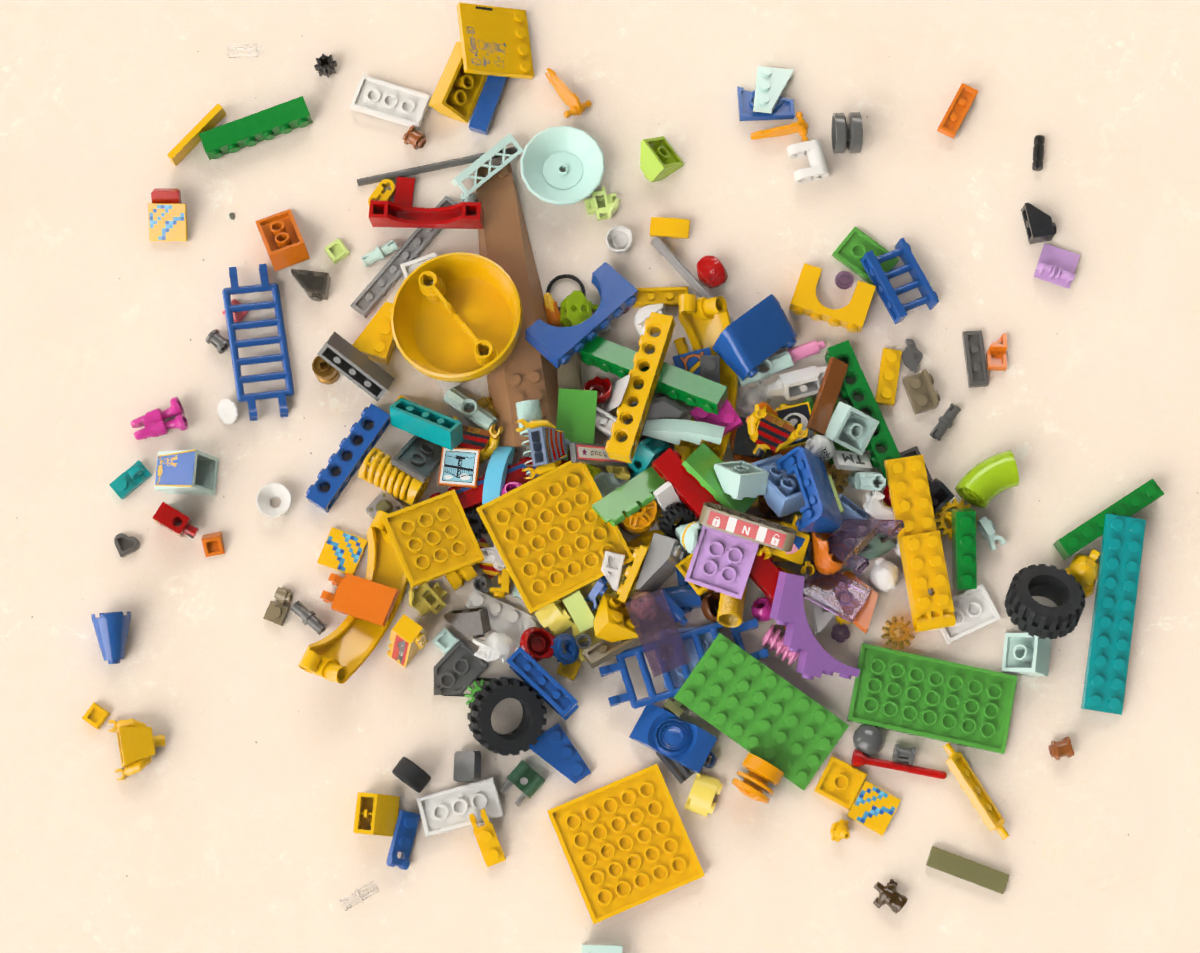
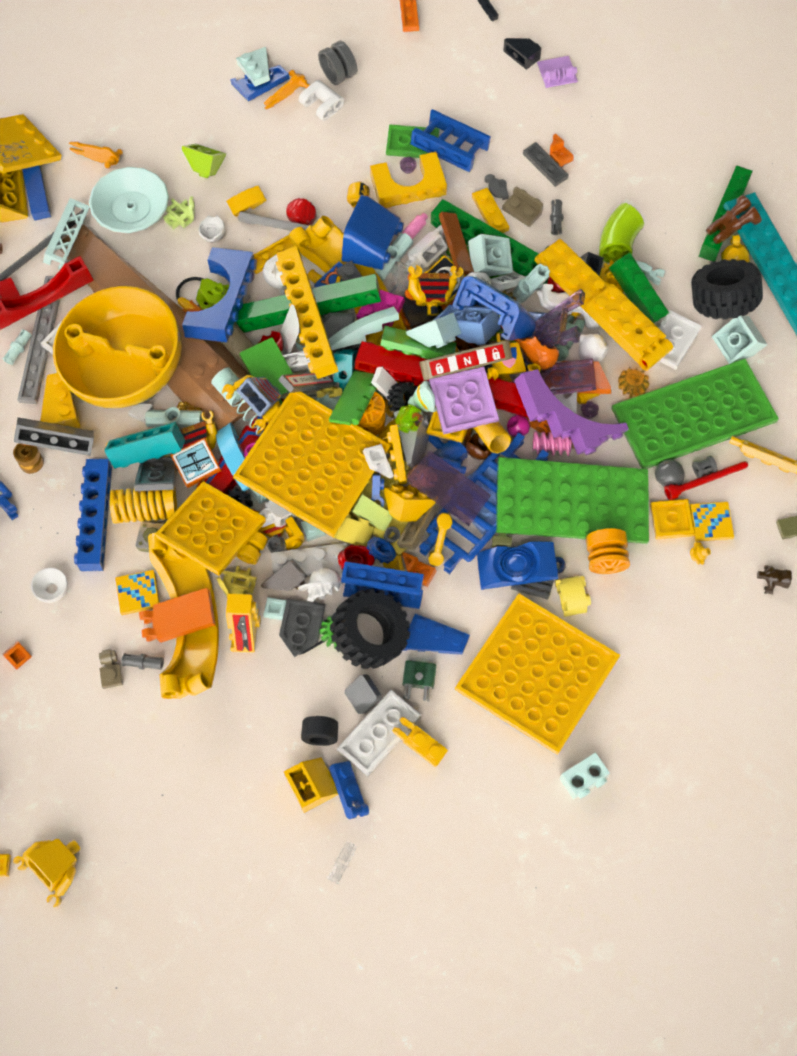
camera: 35 degrees left, 10 degrees down
(587, 685) = (415, 566): none -> orange slope
(631, 662) = (444, 522): none -> yellow bar
(660, 550) = (409, 418): none -> clear neon green head
(776, 284) = (354, 192): none -> yellow head
(1094, 538) = (729, 223): none -> reddish brown piece

